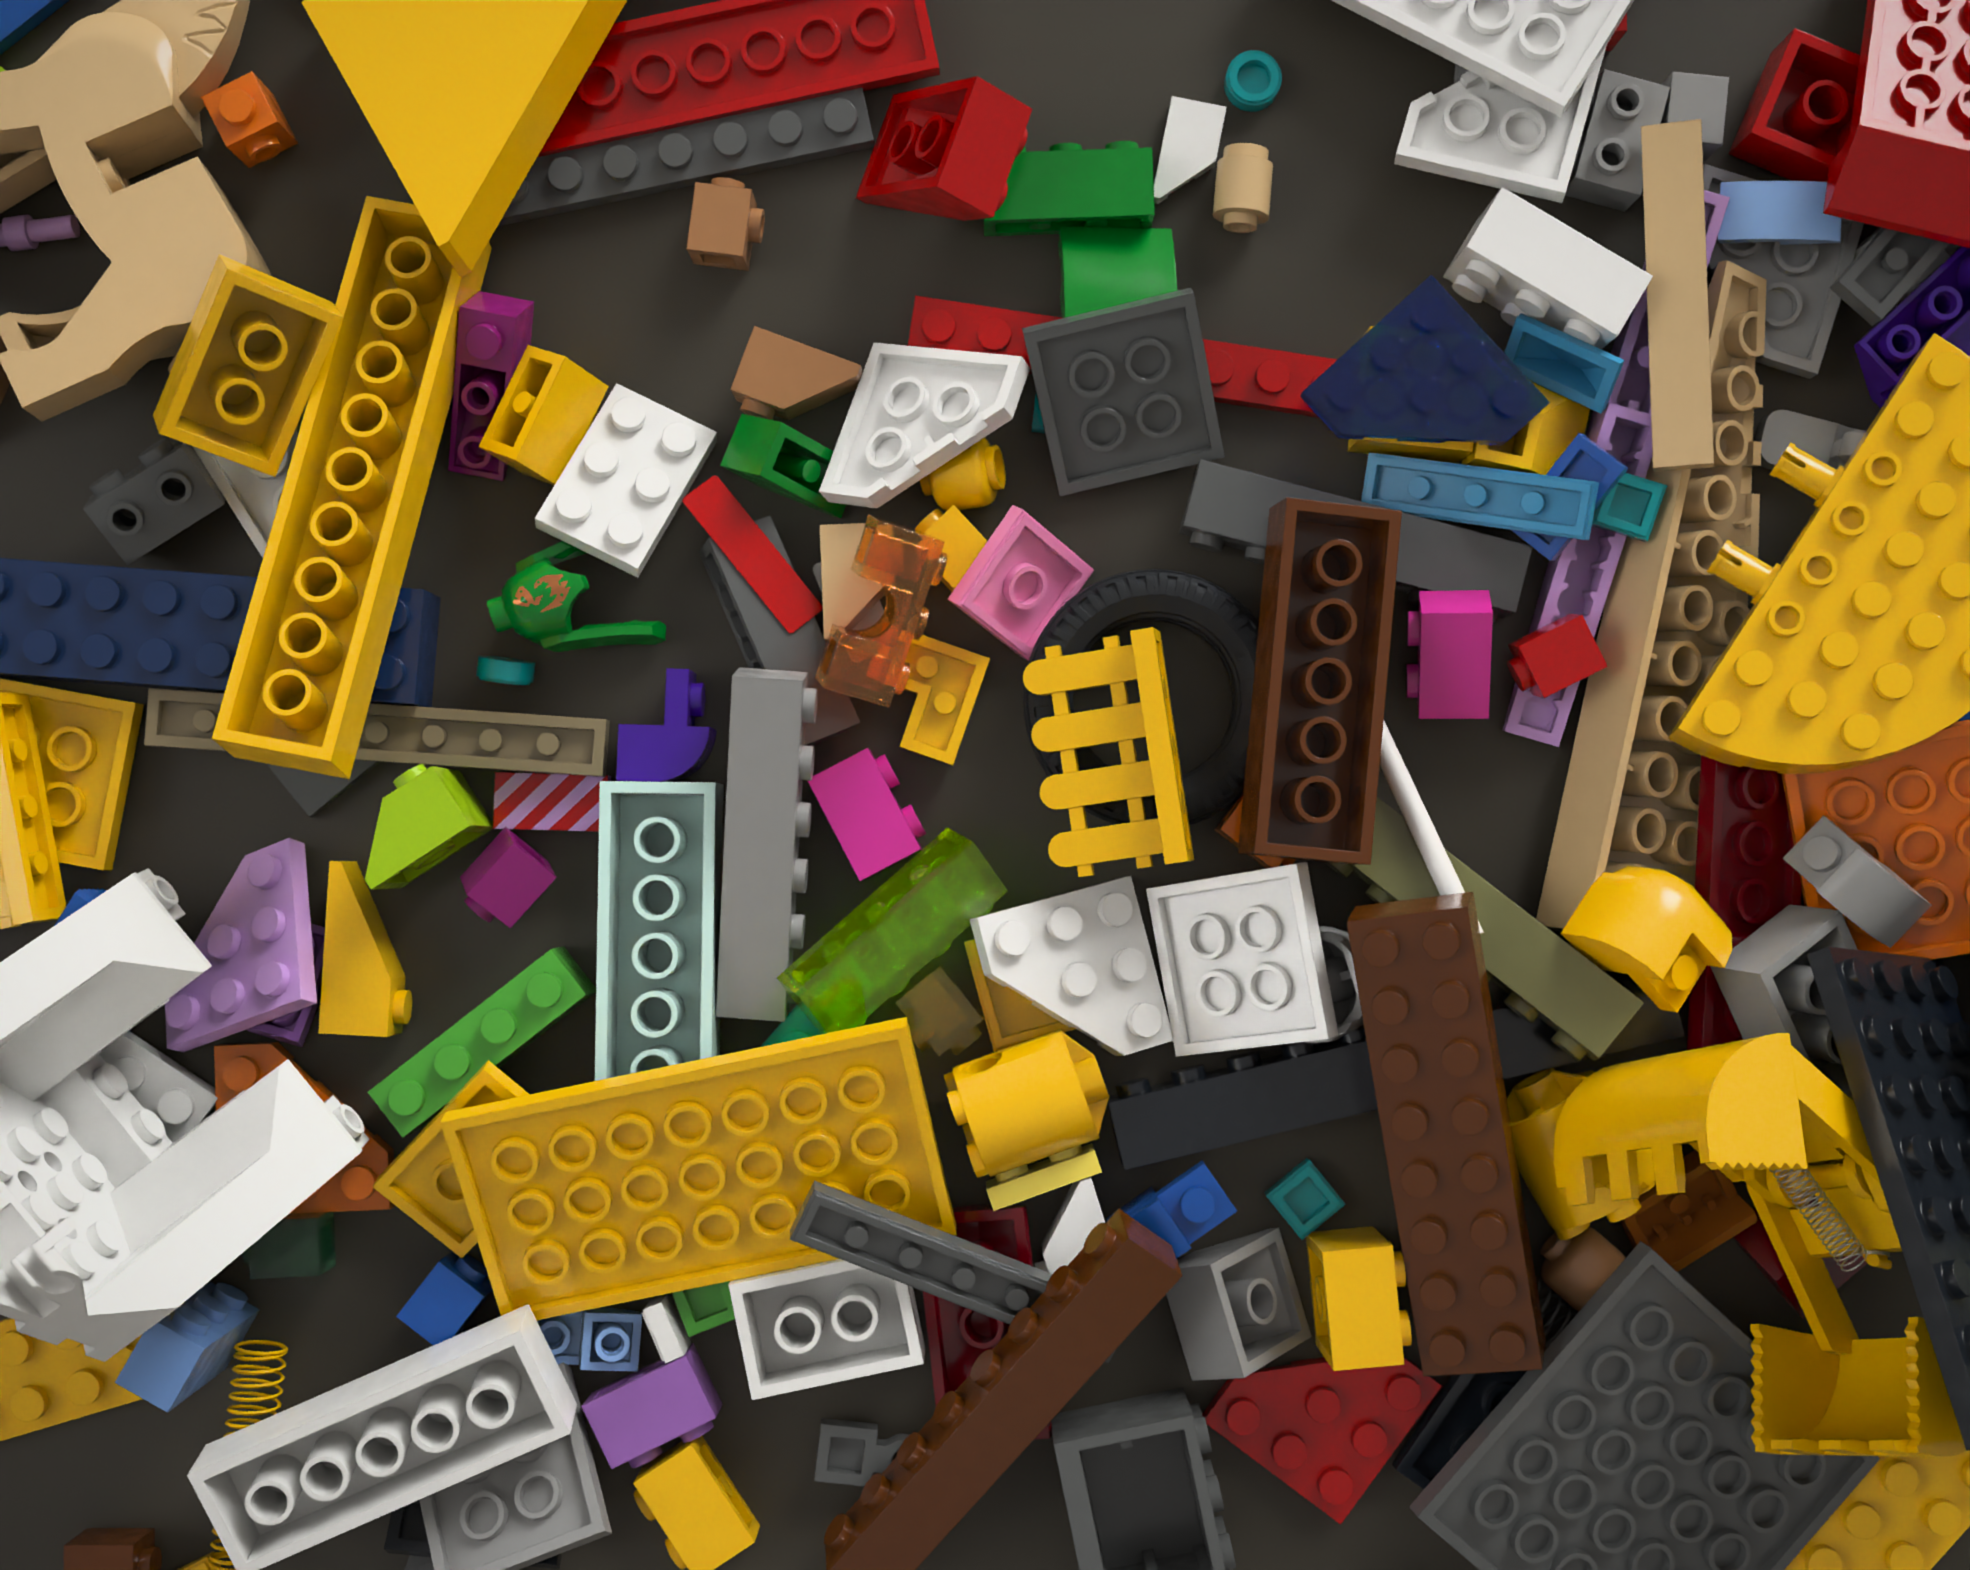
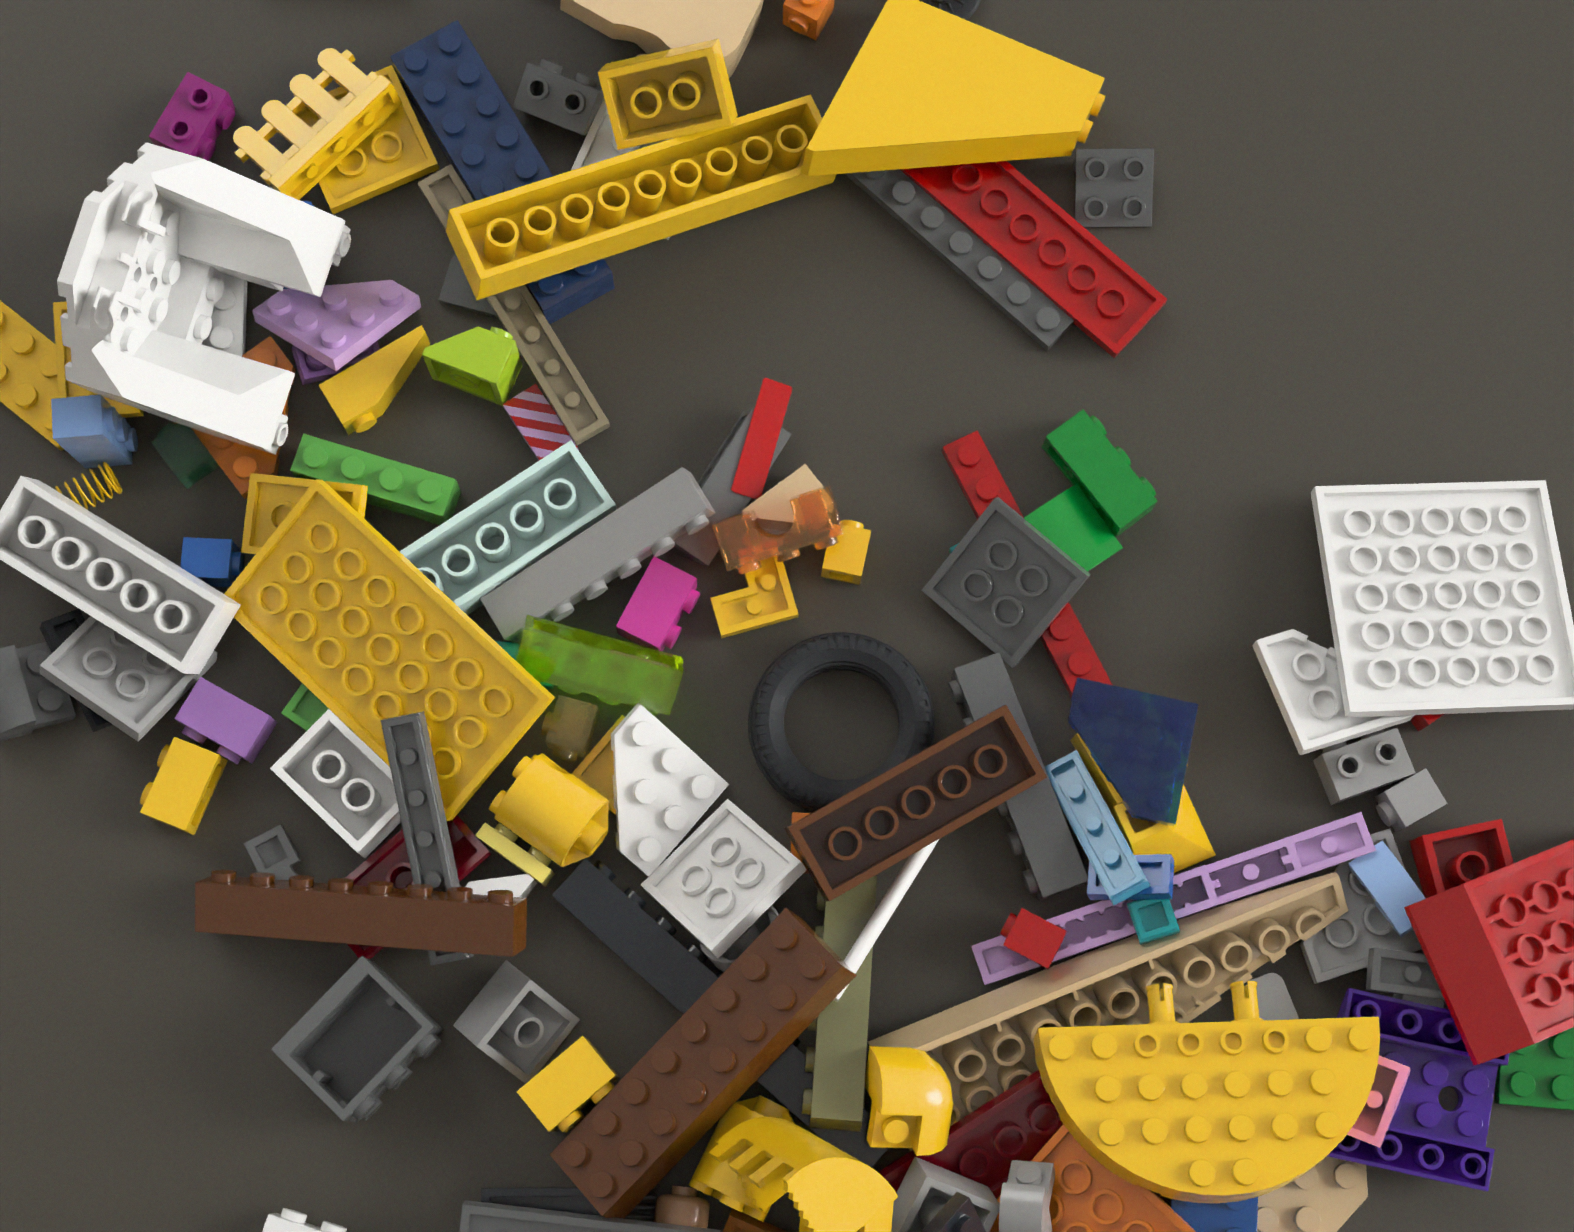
camera: 50 degrees right, 10 degrees down
(488, 350) = (755, 230): magenta slope -> none
(505, 670) = (598, 349): teal tile -> none
(506, 879) = (478, 429): magenta brick -> none
(541, 601) = (654, 338): green piece -> none
(543, 414) = (757, 272): yellow brick -> none
(595, 1338) = (243, 660): light blue slope -> none
(626, 480) = (754, 341): white plate -> none
(666, 1327) = (277, 696): white tile -> none
(671, 749) = (622, 473): dark purple brick -> none
(724, 224) = (938, 297): medium nougat brick -> none
(780, 461) = (829, 427): green slope -> none
(789, 377) = (878, 392): medium nougat slope -> none
(916, 415) = (907, 474): white plate -> none
(946, 150) = (1068, 388): red slope -> none
(968, 478) = (895, 525): yellow head -> none
(1019, 581) = (854, 598): bright pink tile -> none
(1122, 724) = (795, 749): yellow fence -> none
(1182, 1208) = (552, 947): blue brick -> none
(1188, 144) = (1178, 524): white tile -> none
(1243, 187) = (1176, 571): tan brick -> none
(1252, 80) = (1243, 535): teal tile -> none
(1304, 1198) = (608, 1022): teal tile -> none
(1322, 1426) = (481, 1128): red plate -> none
(1452, 654) = (991, 876): dark pink brick -> none
(1545, 270) = (1250, 777): white brick -> none
(1563, 363) = (1207, 821): dark azure slope -> none
(1677, 296) = (1293, 858): tan tile -> none

